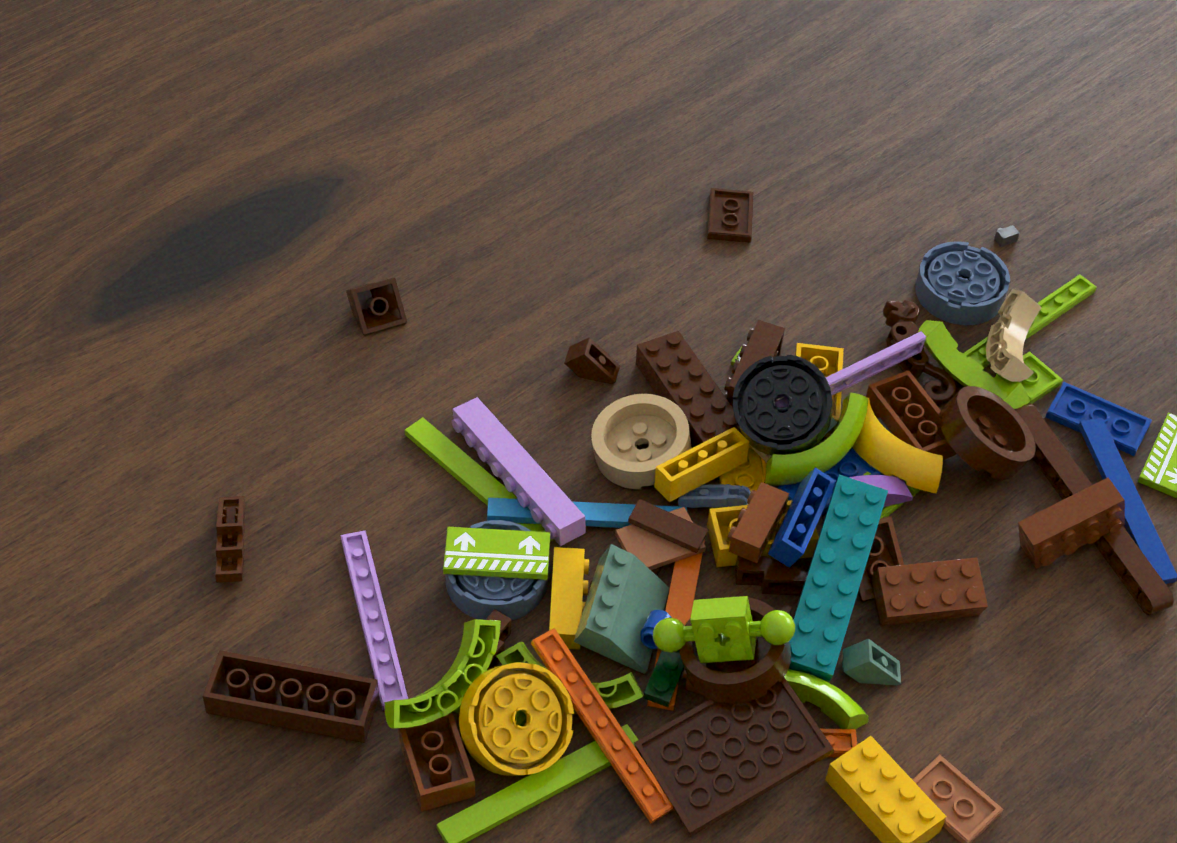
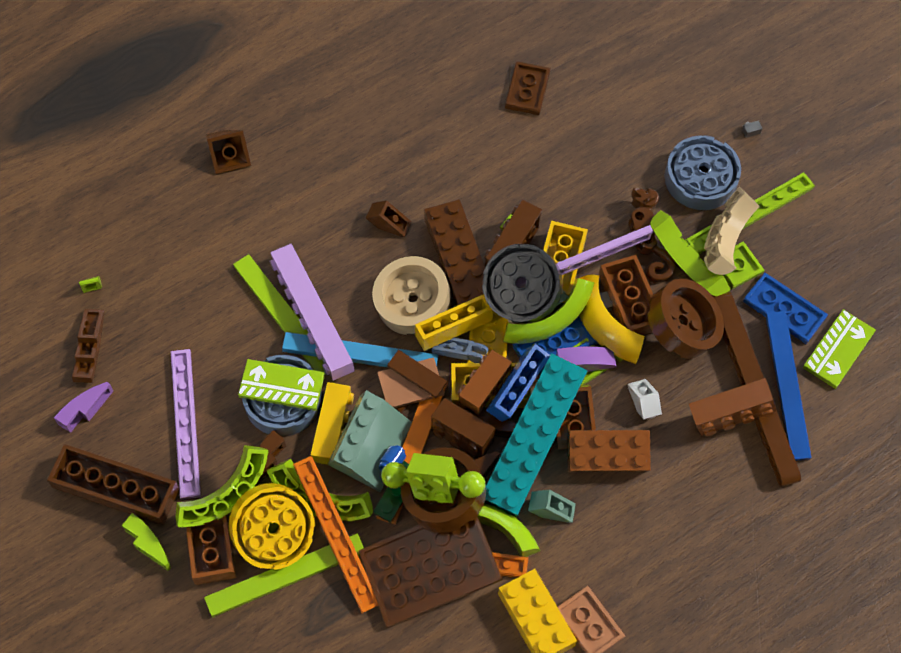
camera: 10 degrees right, 15 degrees up
(222, 468) = (90, 284): none -> lime slope
(234, 609) = (83, 406): none -> medium lavender slope
(346, 763) = (146, 540): none -> lime slope
(734, 575) = (462, 429): none -> reddish brown brick
(958, 531) = (645, 399): none -> white slope

